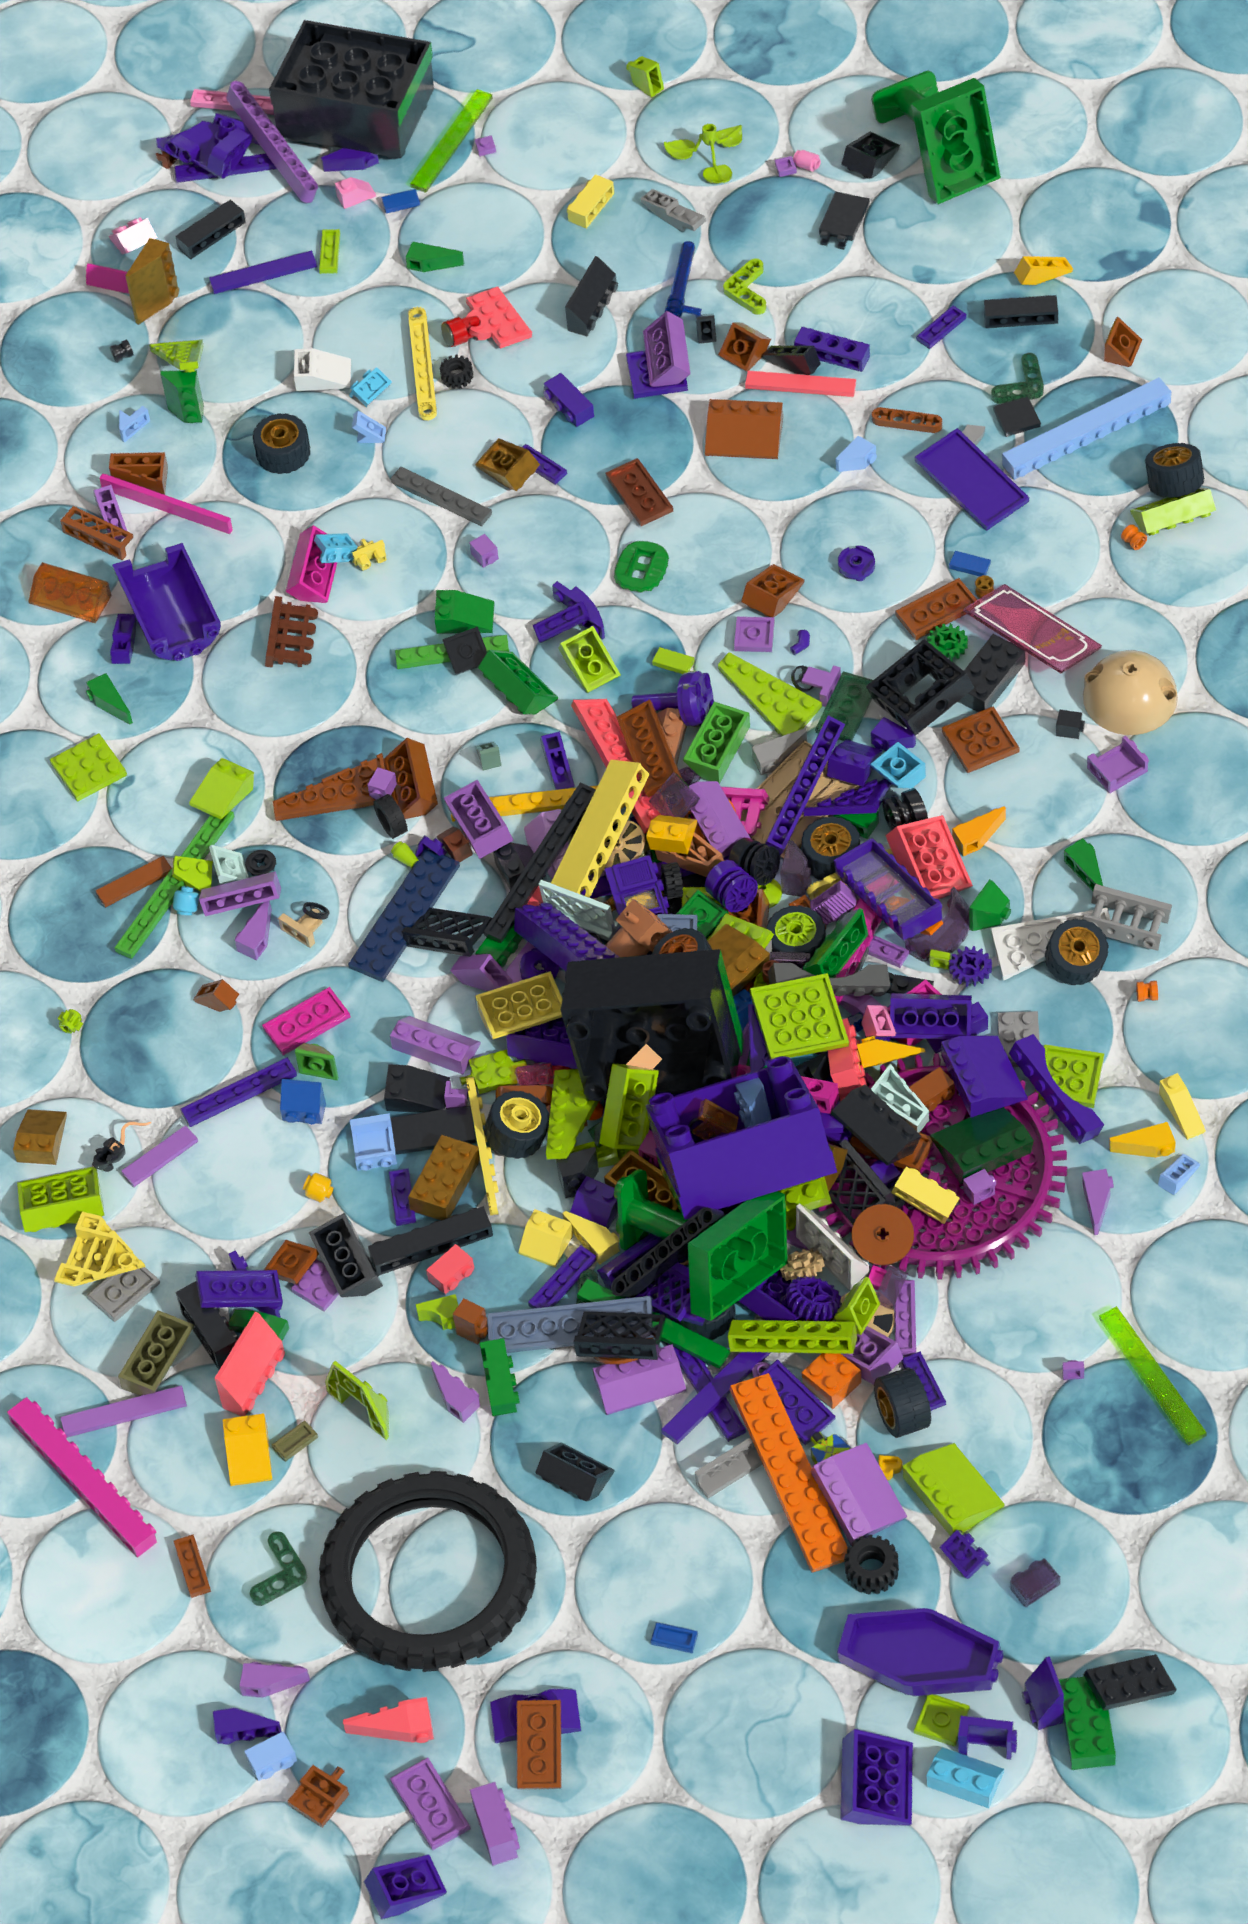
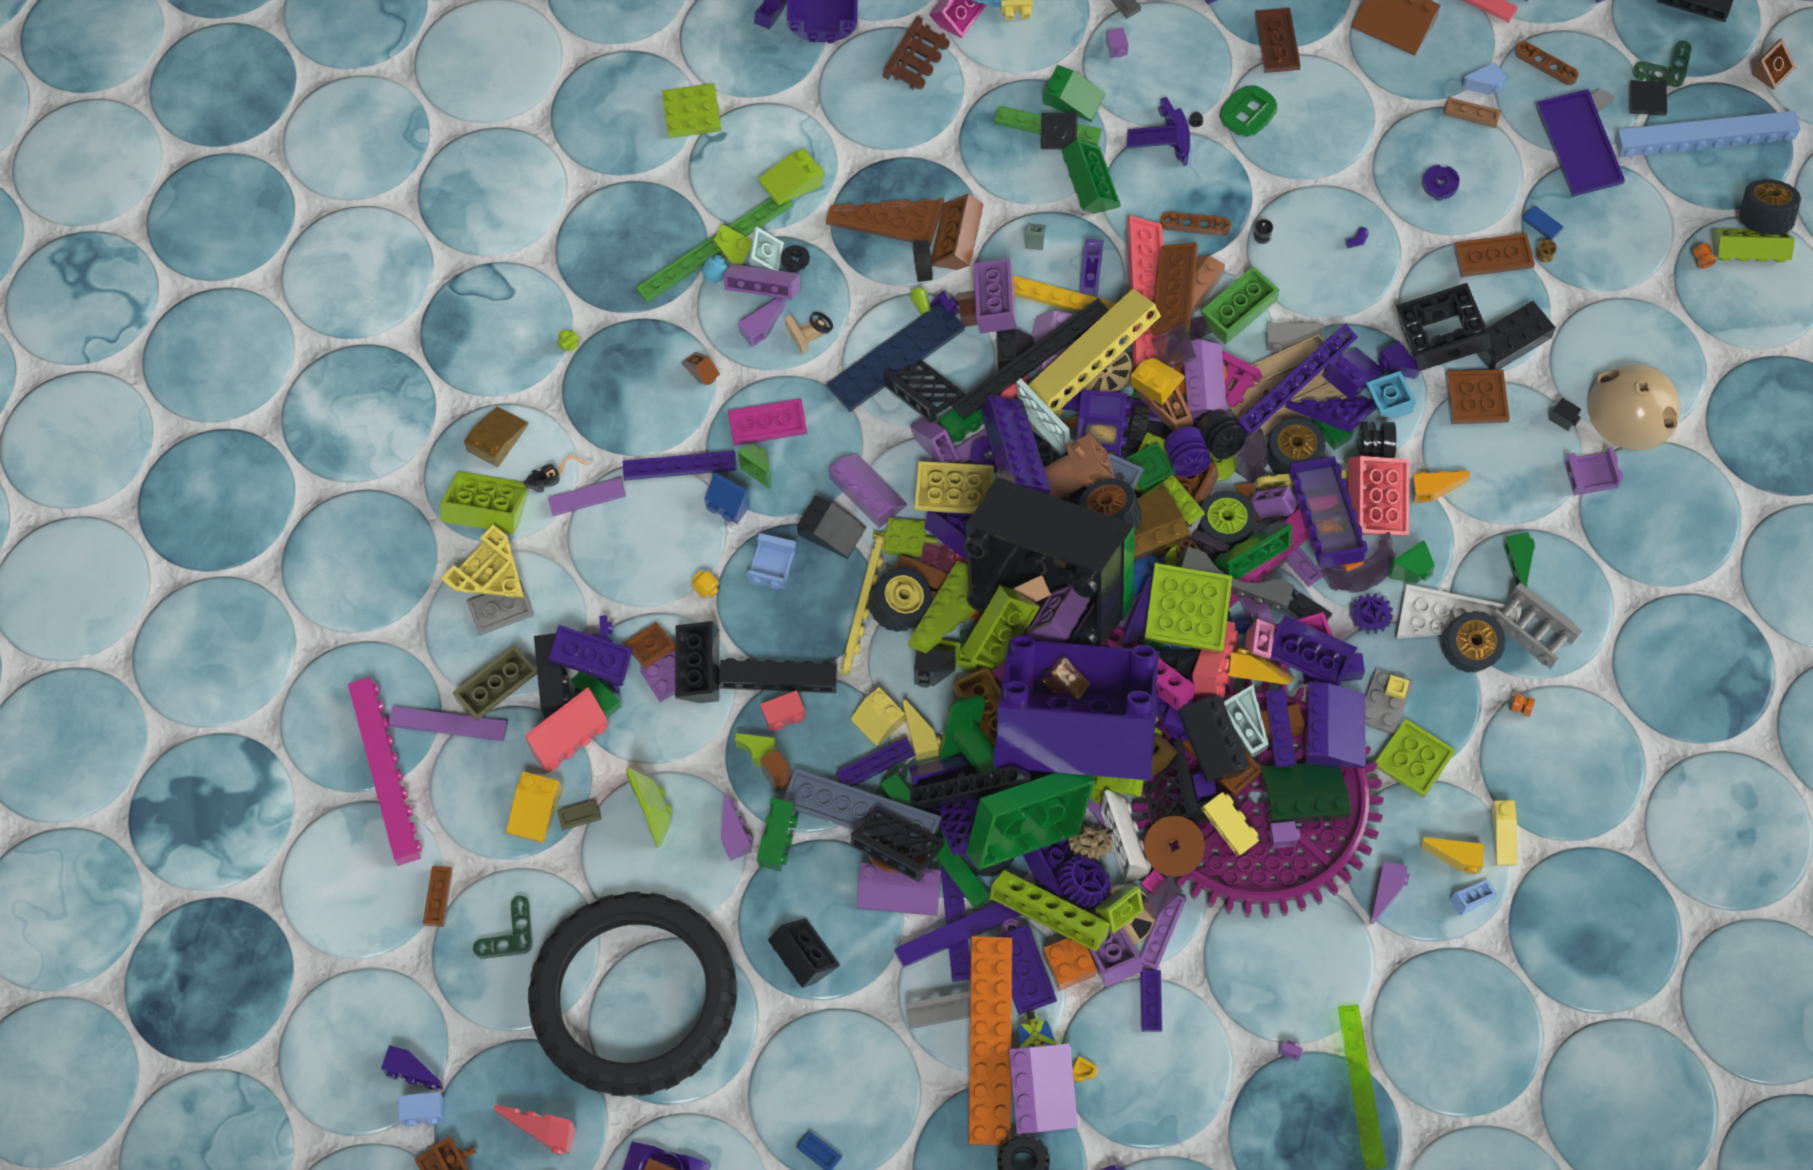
camera: 20 degrees right, 10 degrees up
(107, 698) = (734, 53): green slope -> none
(133, 881) = (681, 232): dark orange tile -> none
(265, 1680) = (453, 1035): medium lavender slope -> none
(382, 783) = (928, 228): medium lavender brick -> none
(400, 1190) = (774, 623): dark purple tile -> none
(424, 1129) = (828, 570): black tile -> none
(444, 1178) = (815, 622): pearl gold brick -> none
(455, 1097) = (860, 548): medium lavender panel -> none
(589, 659) = (1162, 181): lime slope -> none
(594, 592) = (1196, 119): none -> black hinge
(595, 1202) = (933, 702): dark purple slope -> none
(638, 683) = (1195, 221): none -> dark orange beam
(673, 661) = (1236, 211): lime tile -> none
(680, 1068) = (1058, 616): none -> medium lavender slope
(692, 698) = (1233, 256): dark purple piece -> none
(708, 665) = (1263, 231): none -> black wheel
(752, 1102) = (1105, 682): medium blue slope -> none
(754, 634) = (1319, 214): medium lavender plate -> none
(771, 590) = (1353, 179): dark orange slope -> none
(772, 698) = (1309, 282): lime wing -> none
(818, 678) = (1357, 281): medium lavender piece -> none
(848, 704) = (1372, 315): clear green tile -> none
(857, 490) = (1472, 112): none -> medium nougat tile
(902, 1402) = (1119, 1018): black wheel -> none
(933, 1093) = (1280, 728): none -> dark purple plate
(939, 959) = (1346, 595): lime tile -> none
(947, 641) = (1489, 287): green gear -> none
(951, 1488) = (1130, 1118): lime slope -> none
(1024, 1020) = (1397, 687): none -> light yellow tile
(1032, 628) = (1572, 309): clear pink piece -> none
(1078, 1119) = (1404, 807): dark purple arch -> none

